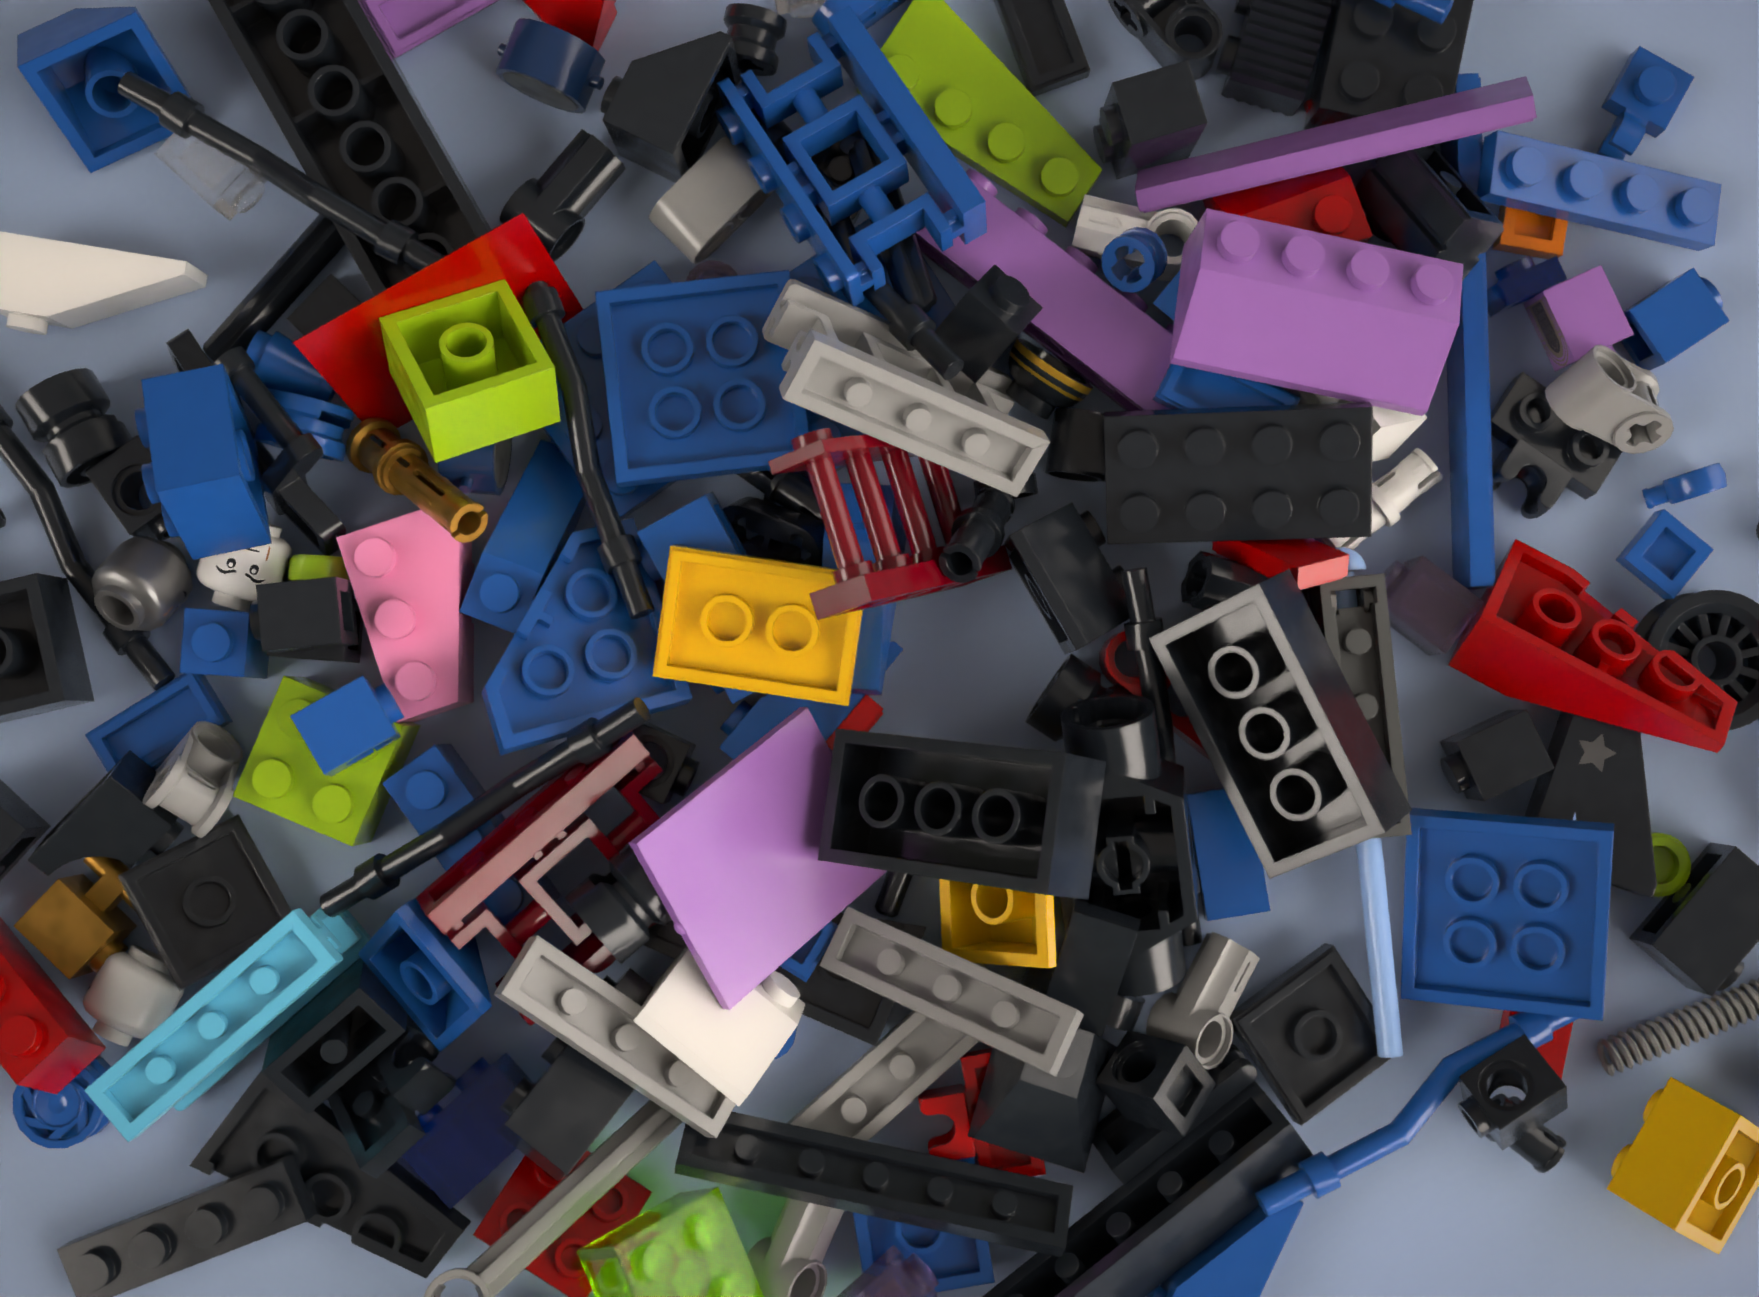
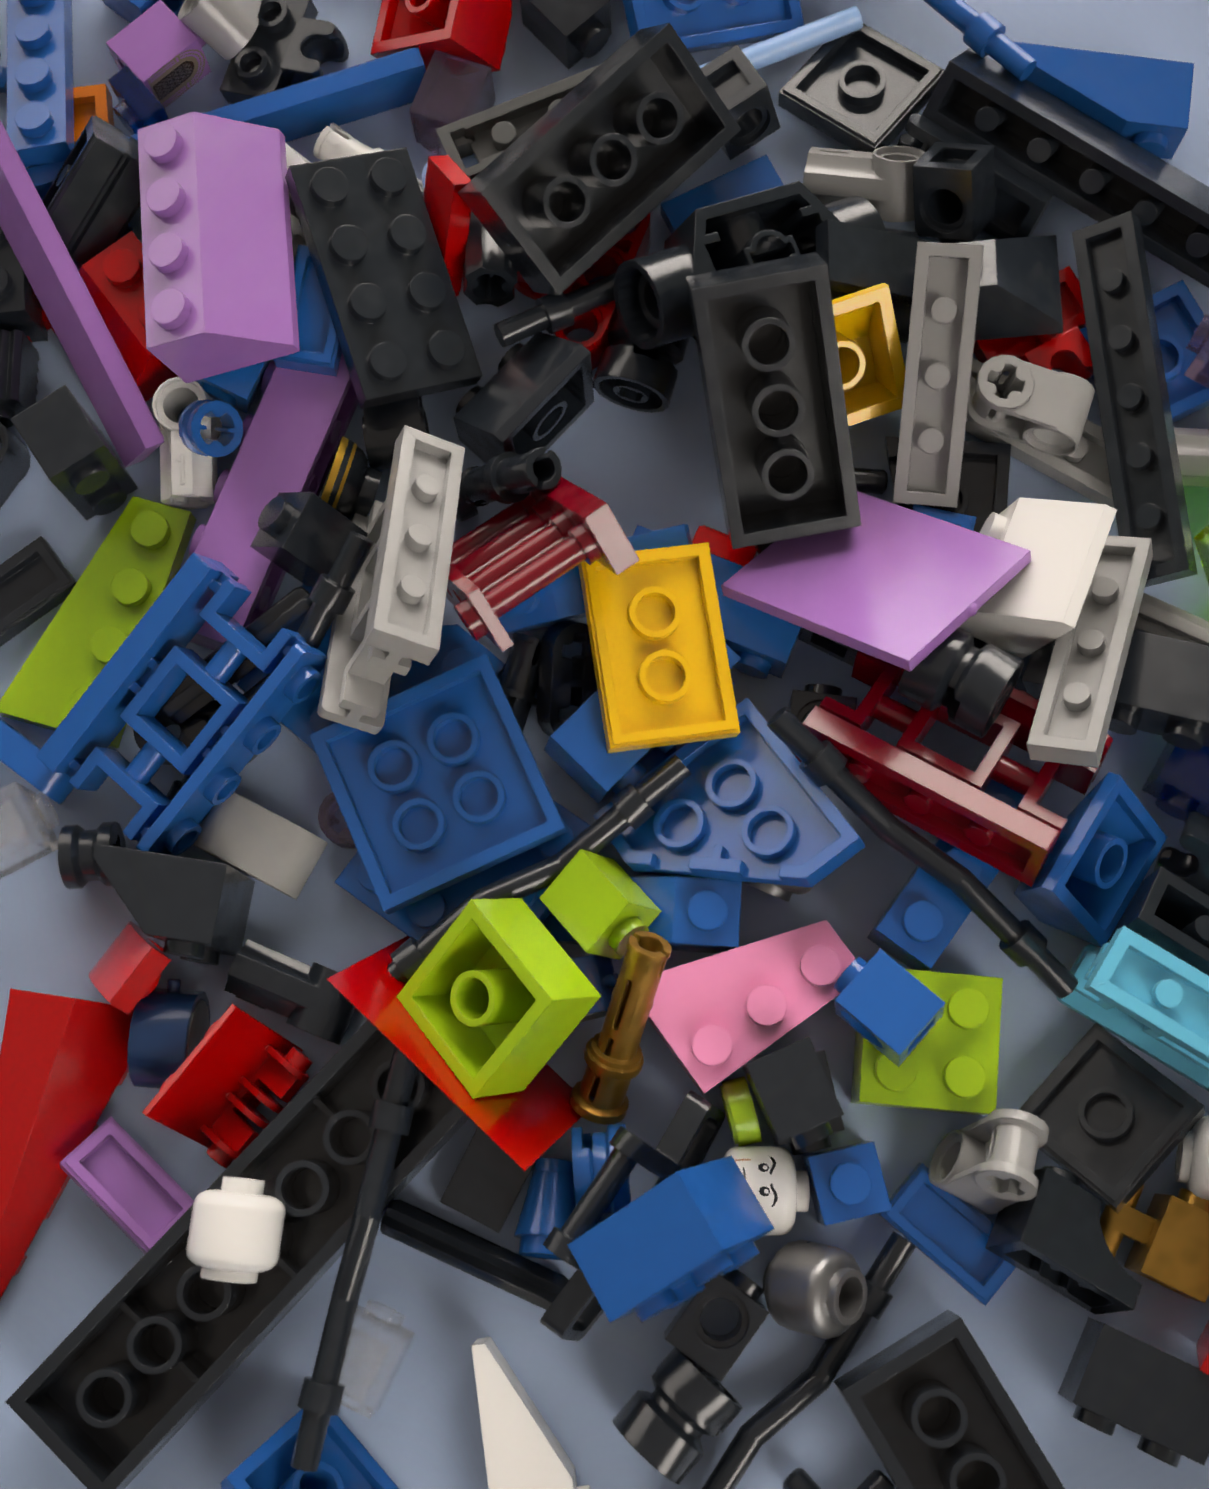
camera: 105 degrees left, 10 degrees down
(335, 73) = (235, 1231): none -> white head
(485, 111) = (227, 1081): none -> red hinge
(535, 495) = (599, 904): none -> lime brick
(616, 37) = (129, 968): none -> red slope
(896, 1086) = (1035, 404): none -> light grey piece
(1330, 892) = (745, 98): none -> black brick

